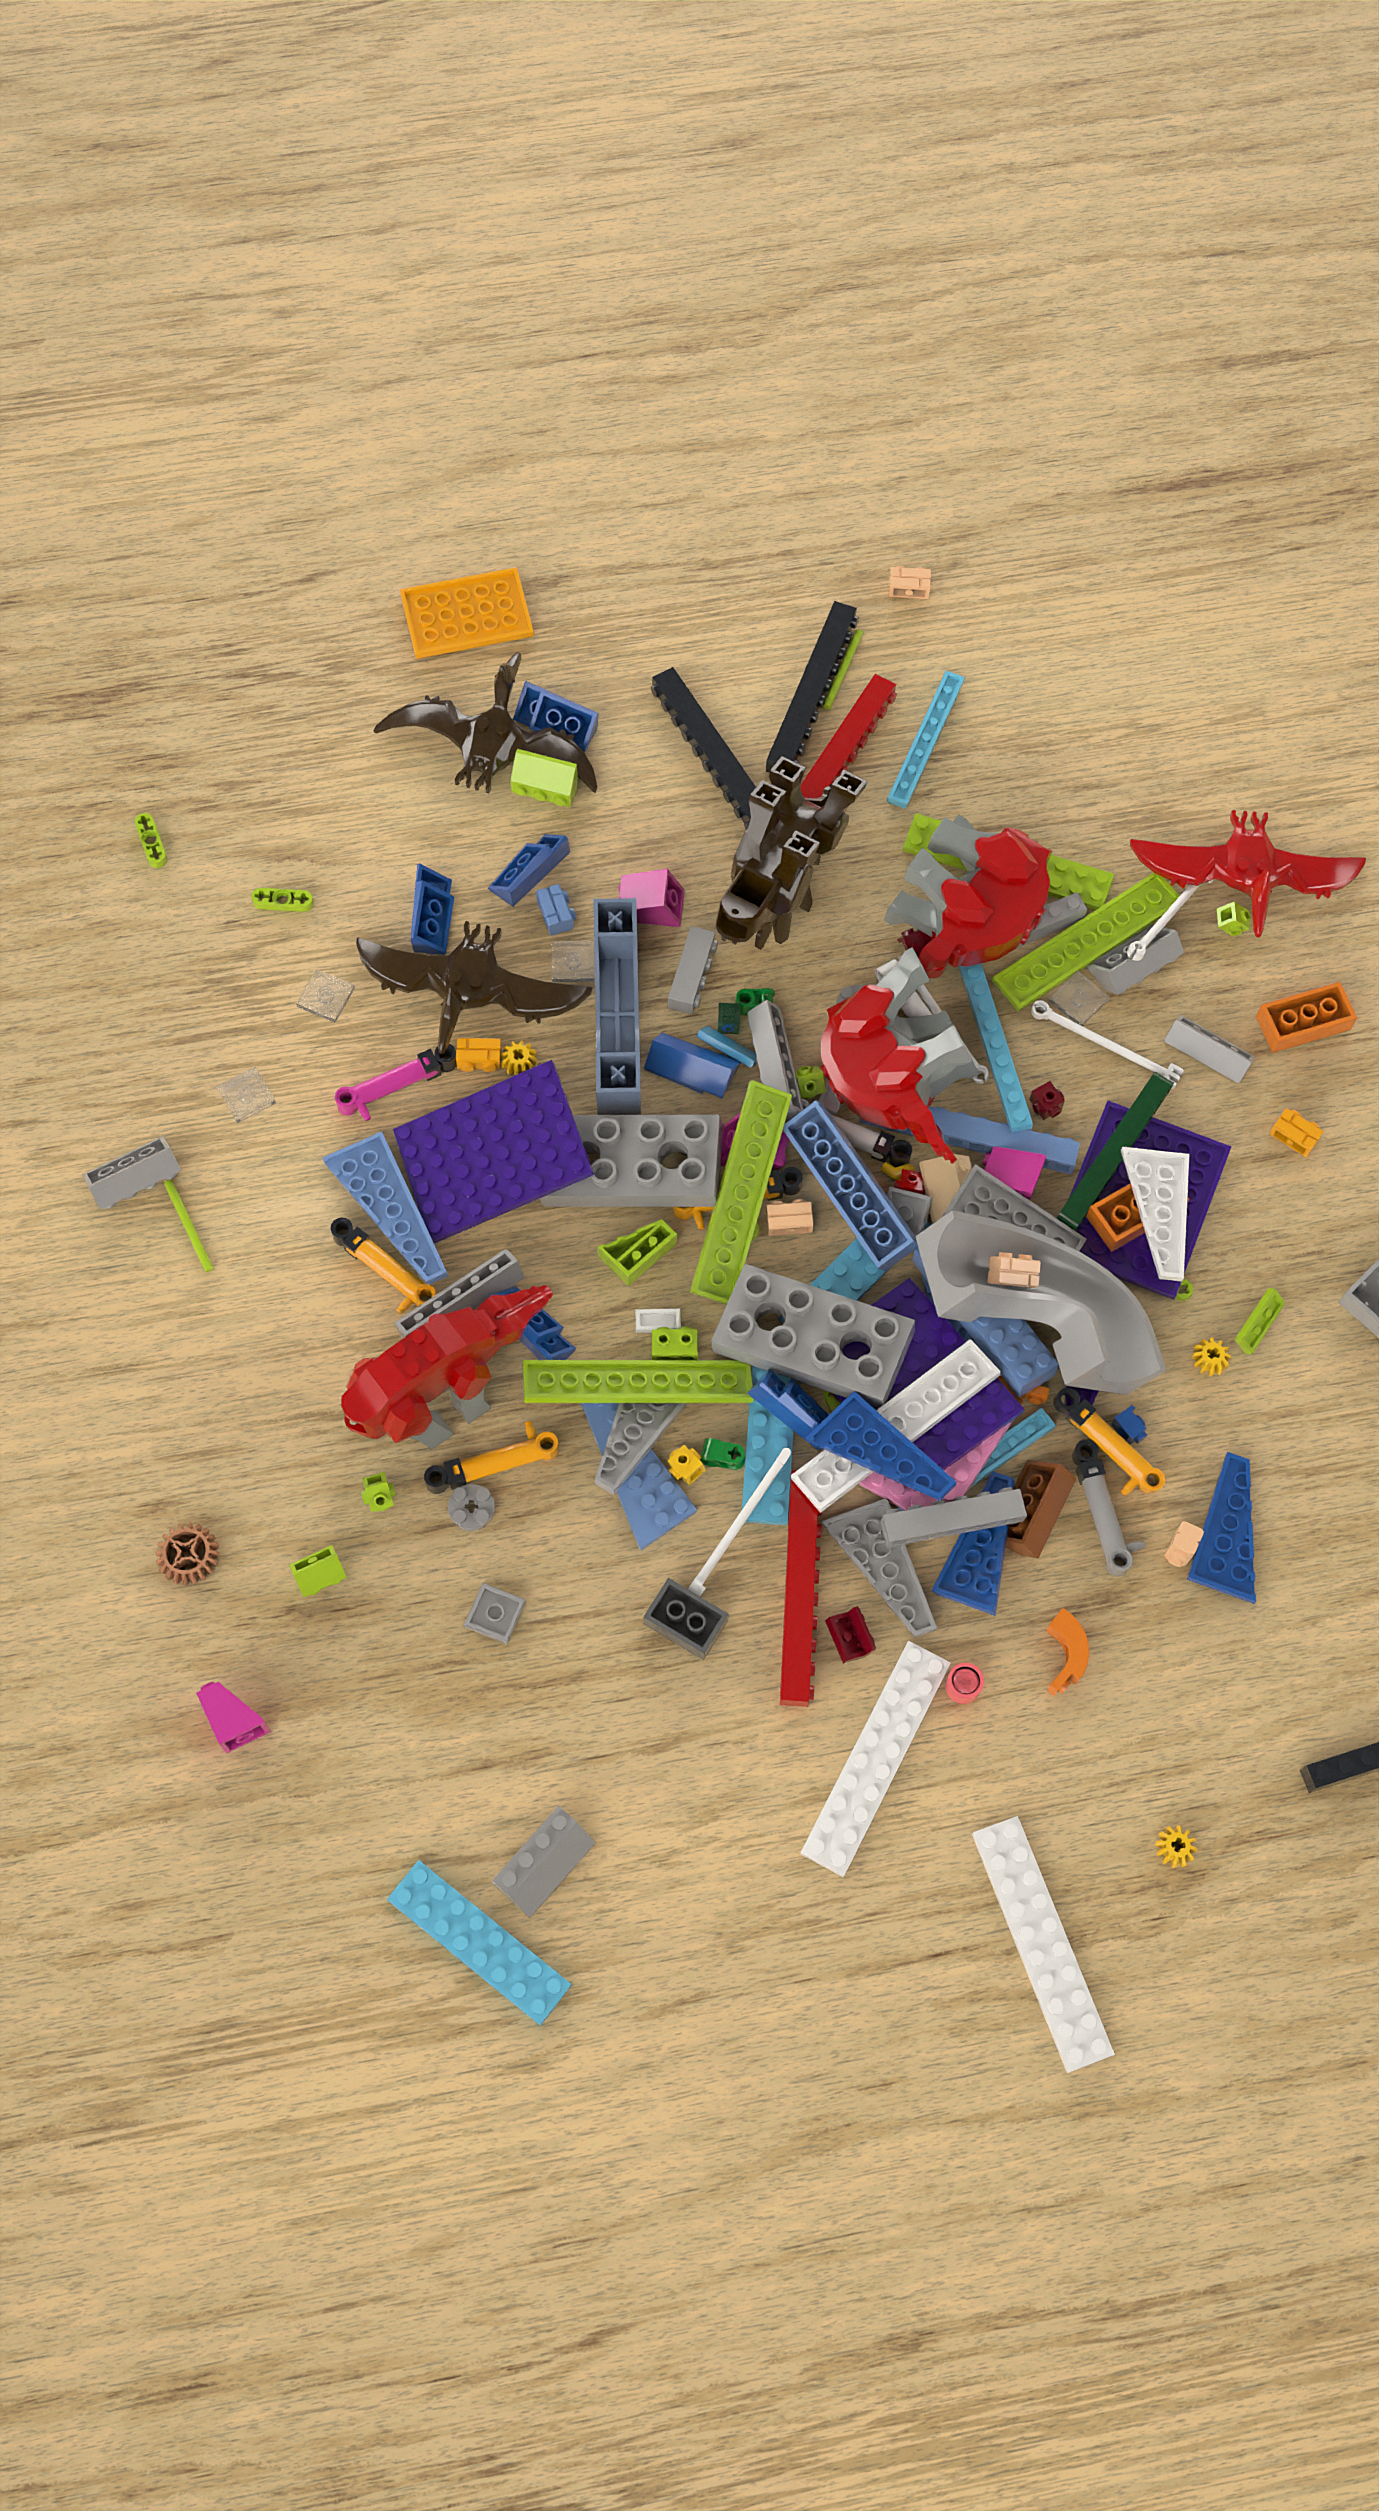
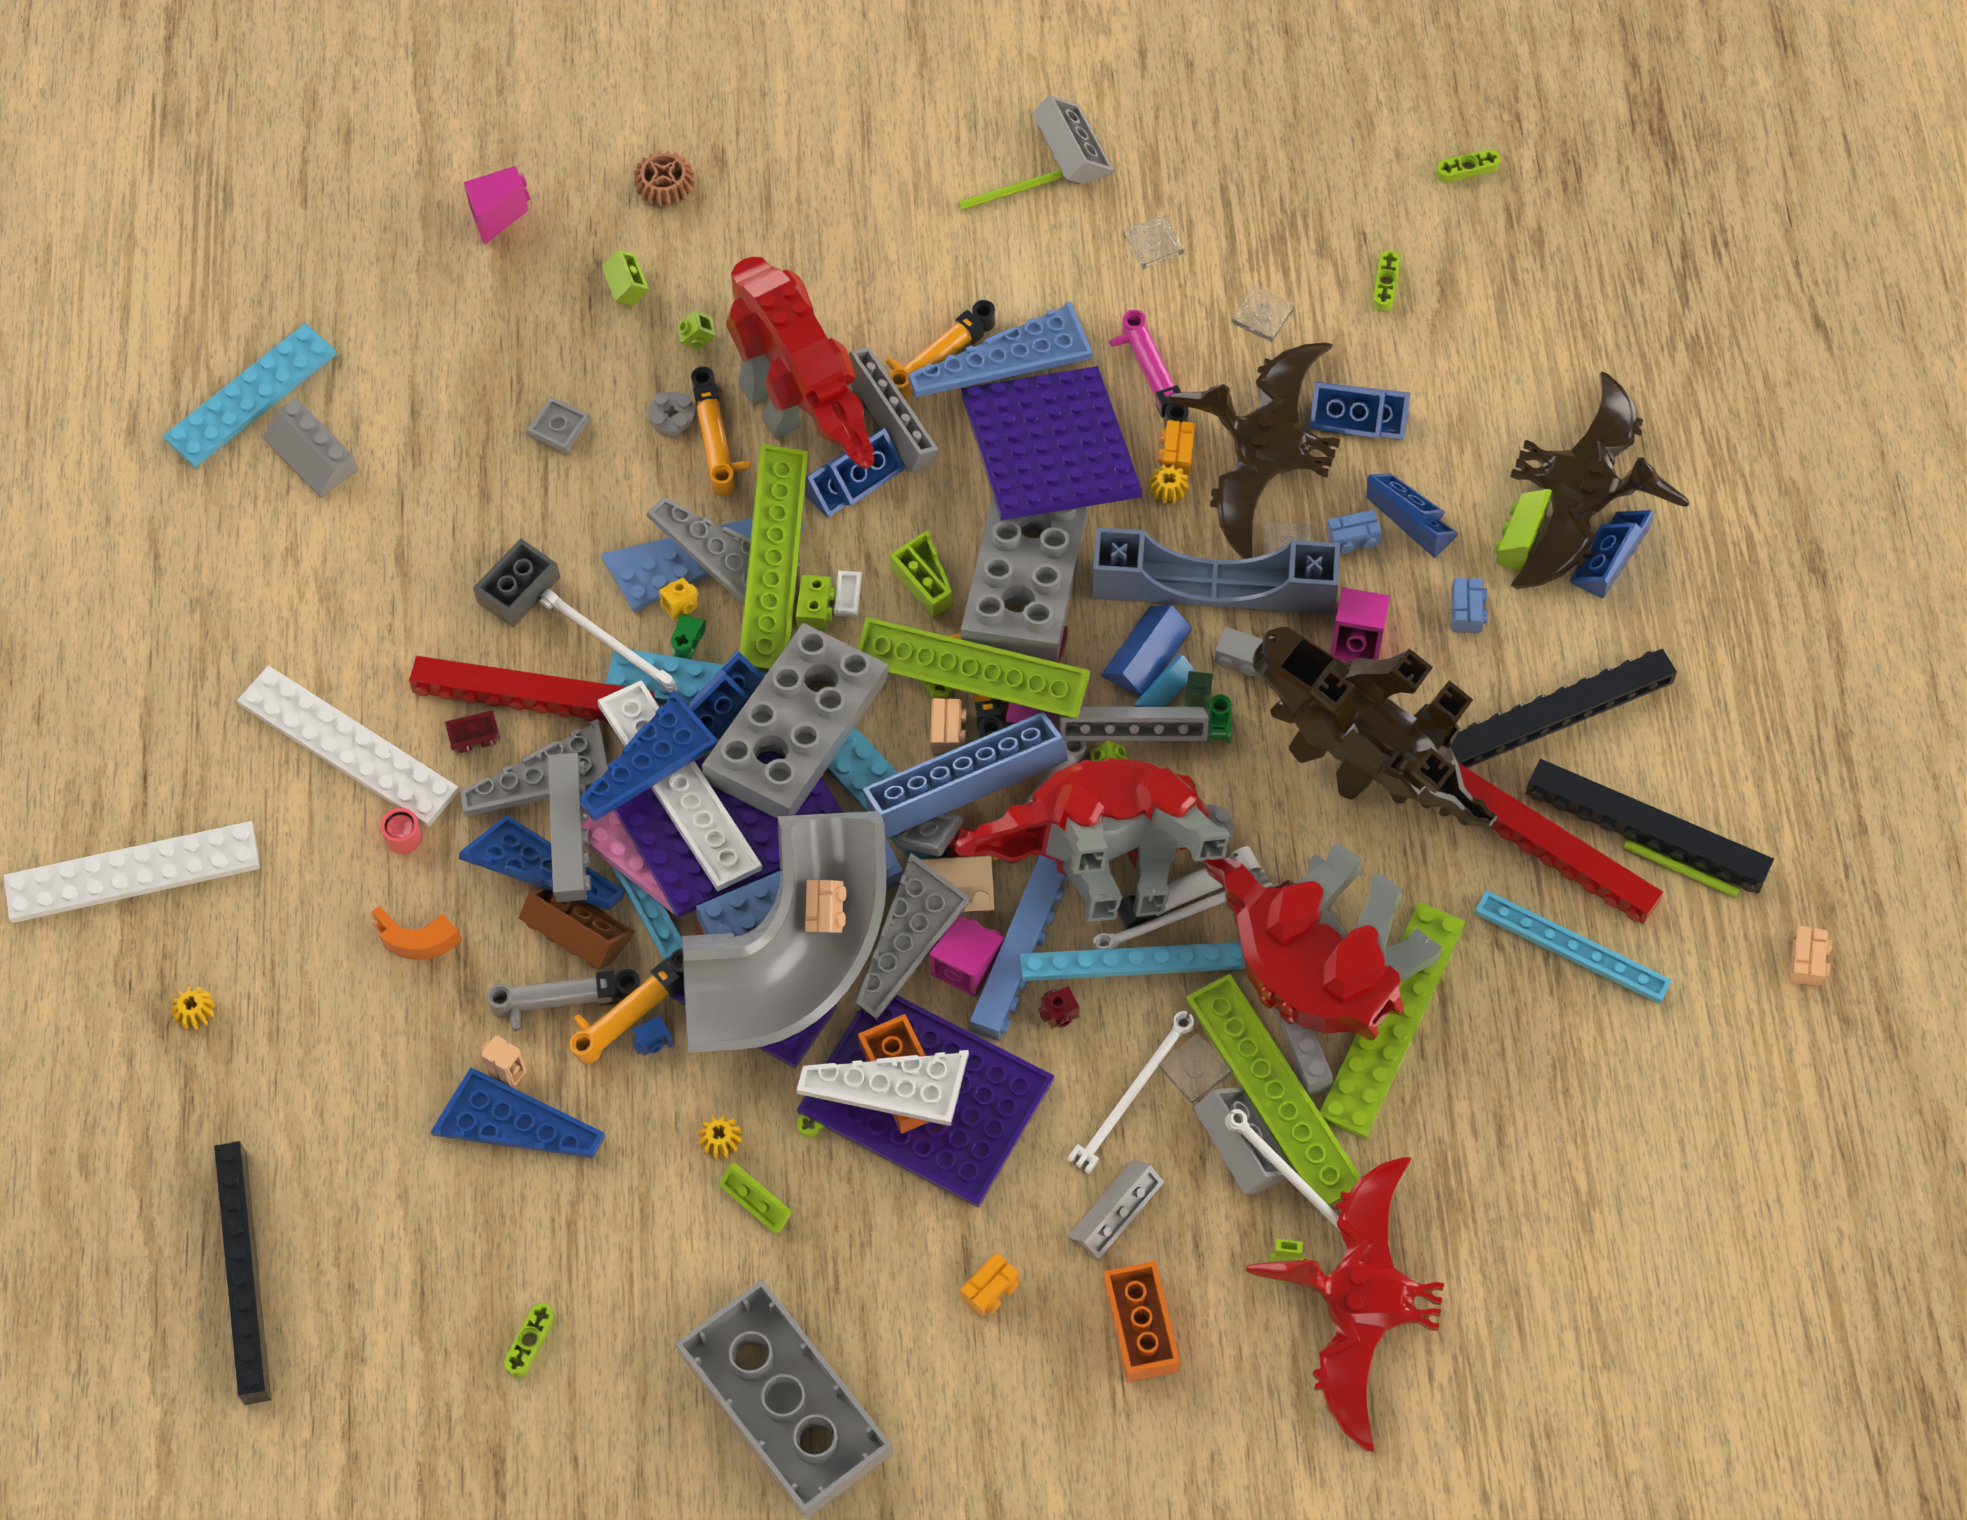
camera: 100 degrees right, 5 degrees down
(466, 613) = (1765, 472): light orange plate -> none
(620, 821) = (1468, 605): none -> medium blue brick
(1110, 1156) = (986, 1068): dark green beam -> none

